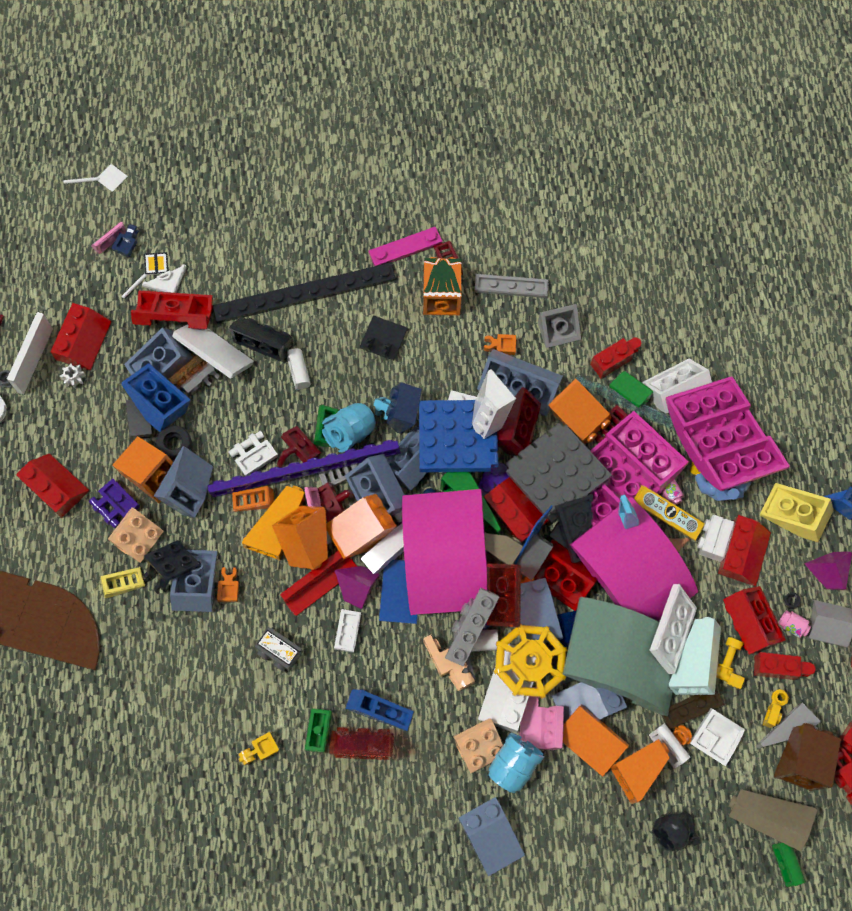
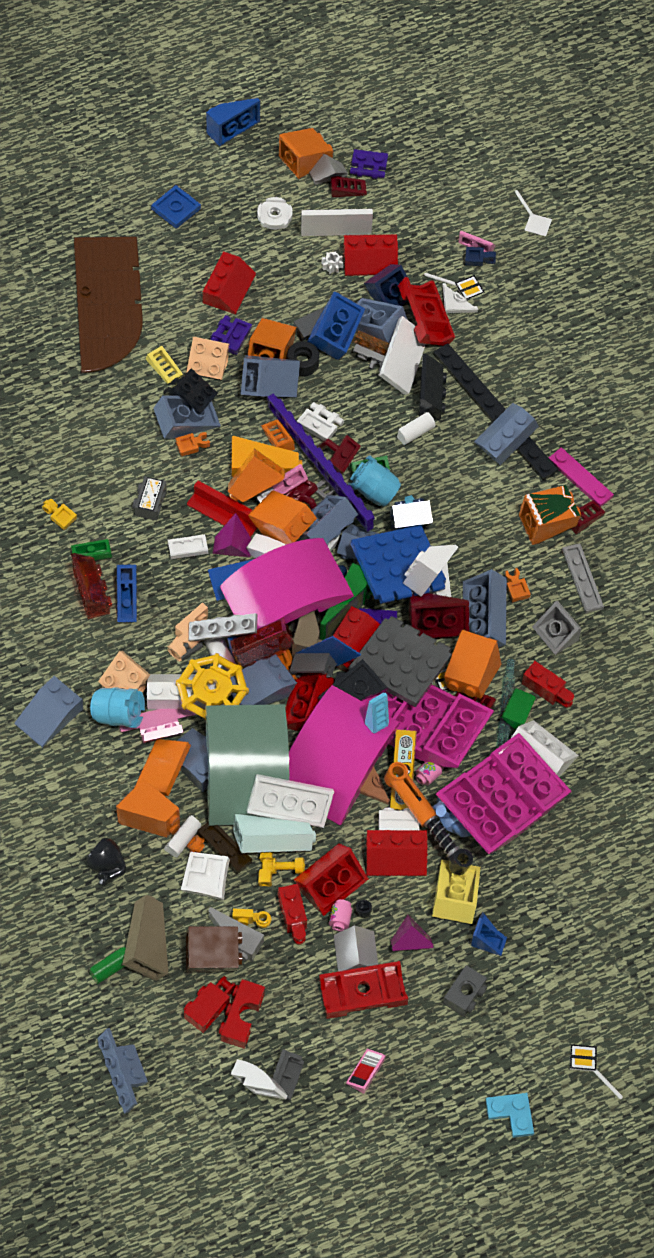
camera: 70 degrees right, 10 degrees down
(124, 336) = (384, 285): none -> dark blue slope
(338, 290) = (507, 433): none -> sand blue slope
(383, 337) = (477, 487): black plate -> none
(726, 509) = (427, 816): none -> piece

